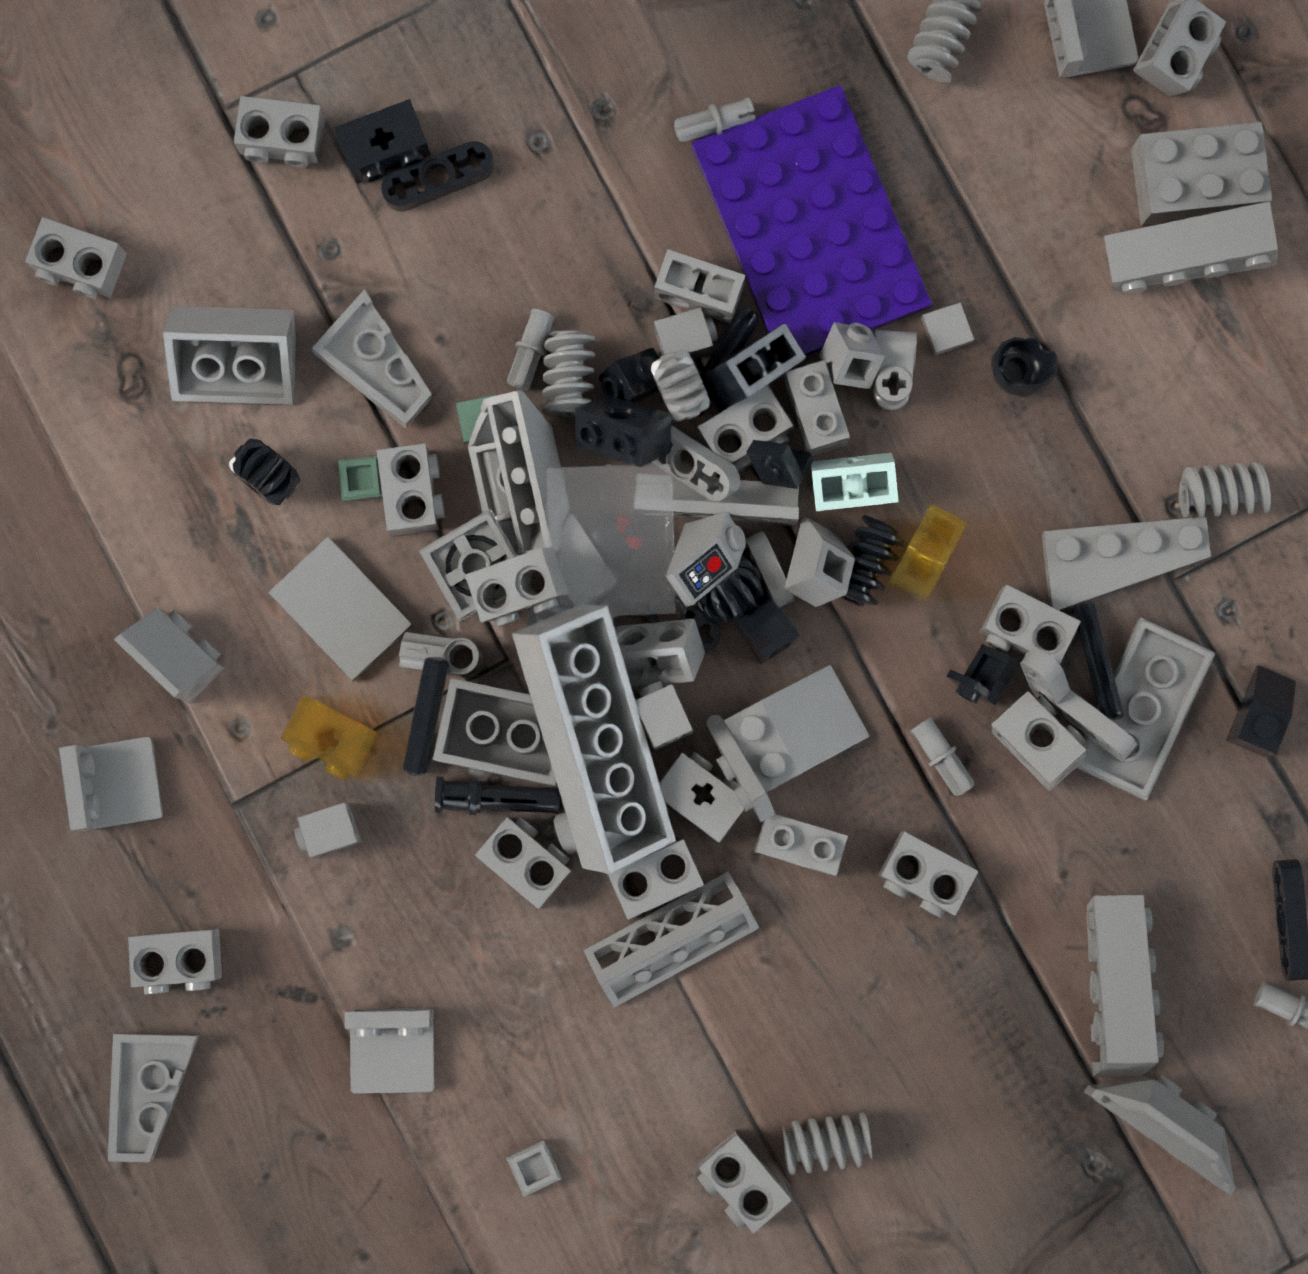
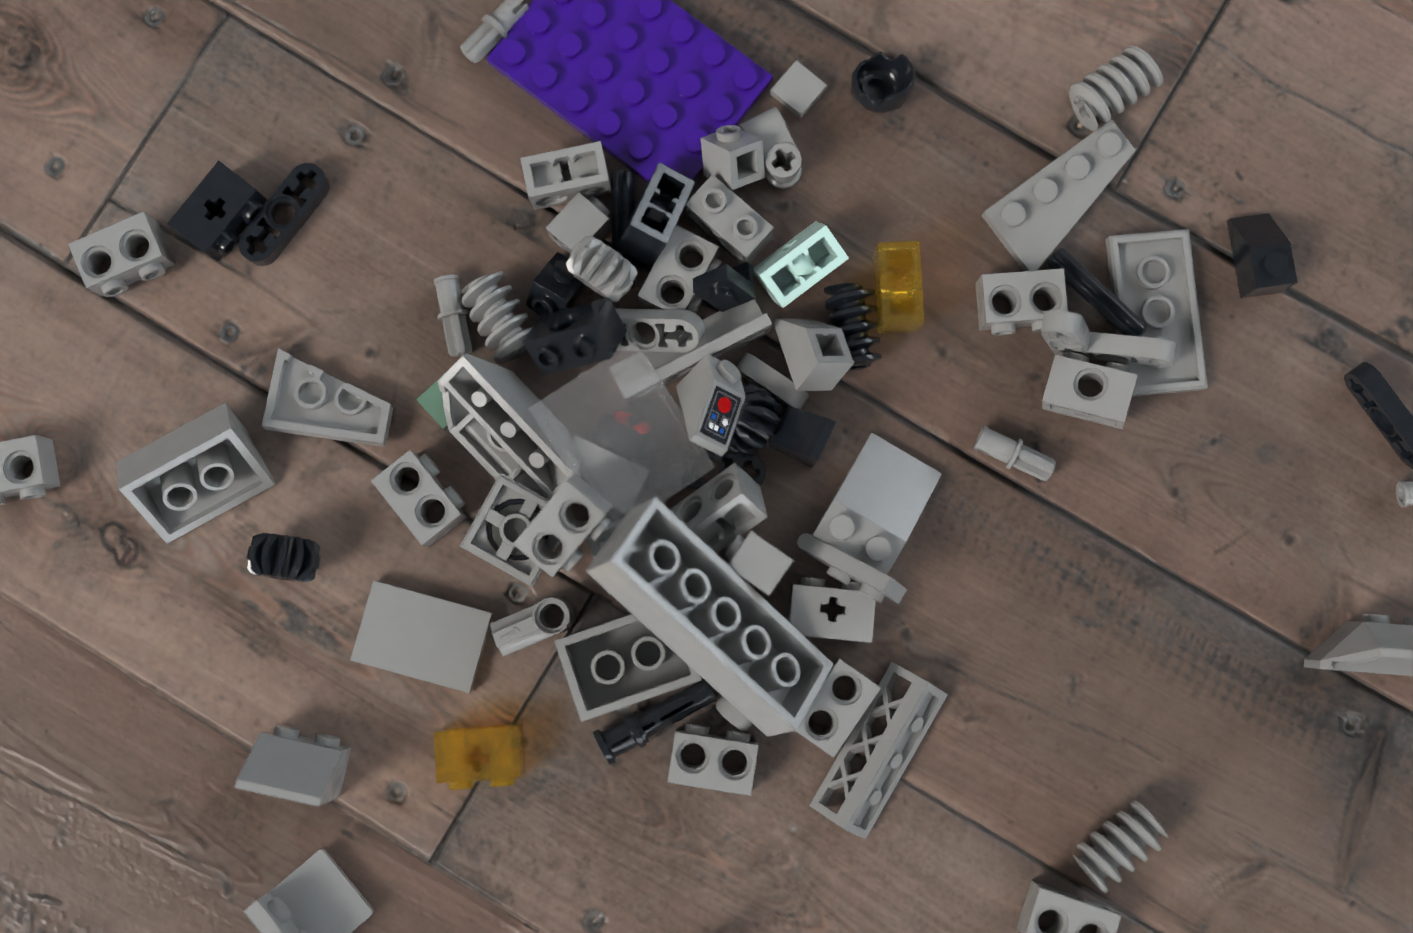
camera: 30 degrees left, 0 degrees up
(327, 830) = (525, 837): light grey brick -> none
(359, 479) = (371, 514): sand green tile -> none
(425, 716) = (551, 685): black axle -> none
(801, 844) = (942, 602): light grey brick -> none
(931, 865) = (1062, 555): light grey brick -> none
(985, 676) = (1009, 363): black bracket -> none
(1123, 986) = (1287, 558): light grey wedge -> none

